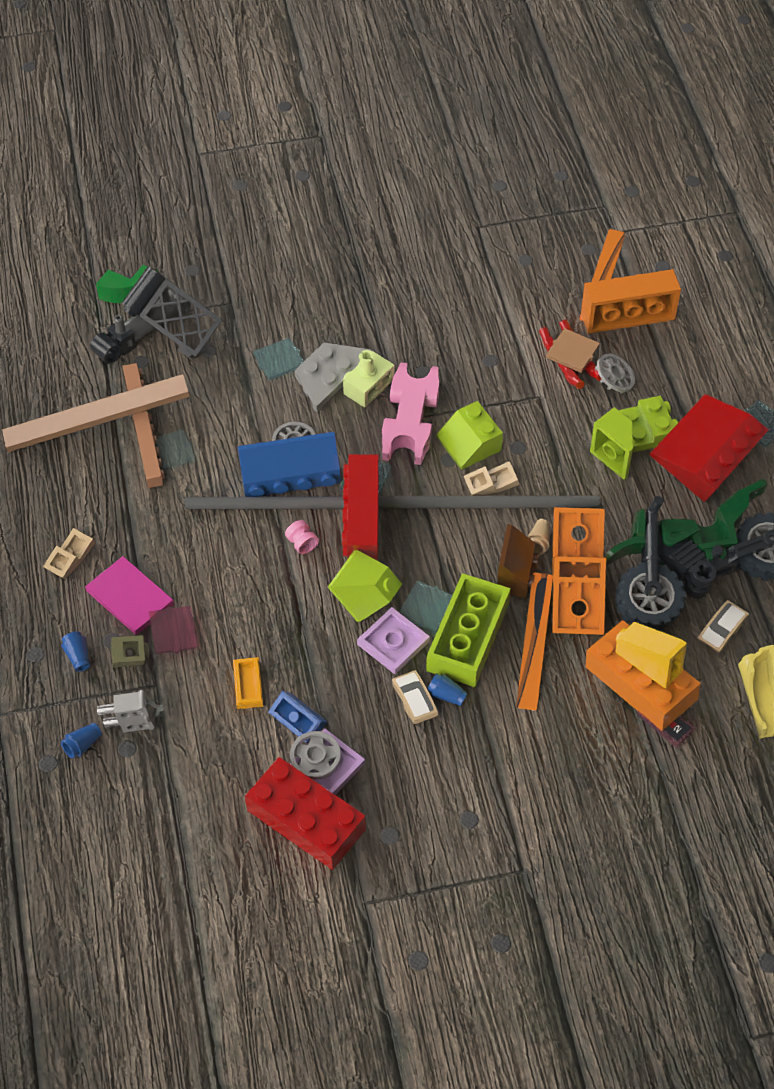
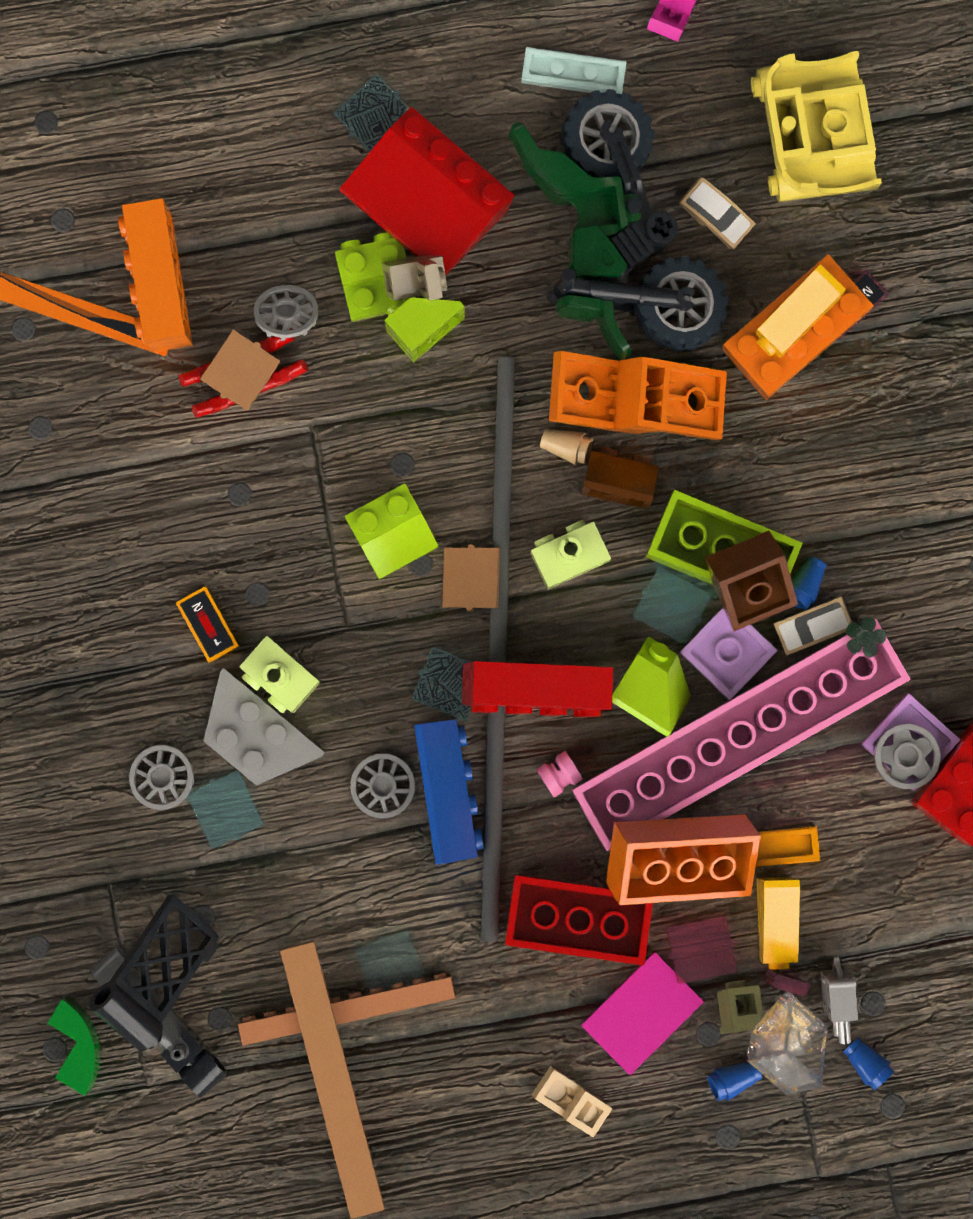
camera: 90 degrees left, 30 degrees up
(98, 676) = (789, 1046): none -> clear slope
(145, 672) = (787, 982): none -> clear pink tile
(193, 671) = (778, 921): none -> yellow slope
(197, 547) = (576, 920): none -> red brick
(238, 598) = (682, 859): none -> orange brick
(296, 715) = (834, 779): blue slope -> none
(300, 323) = (161, 777): none -> light grey wheel
(333, 647) = (739, 735): none -> bright pink brick
(401, 344) = (207, 624): none -> tile
(405, 712) = (865, 637): none -> clear green plant
(408, 428) = (318, 610): bright pink piece -> none
(440, 484) = (471, 577): none -> medium nougat piece
(444, 630) = (752, 580): none -> reddish brown slope
(459, 539) = (570, 554): none -> yellowish green brick
(493, 481) = (464, 505): tan slope -> none
(534, 642) = (733, 463): orange sticker -> none
(646, 430) = (415, 277): none -> dark tan brick

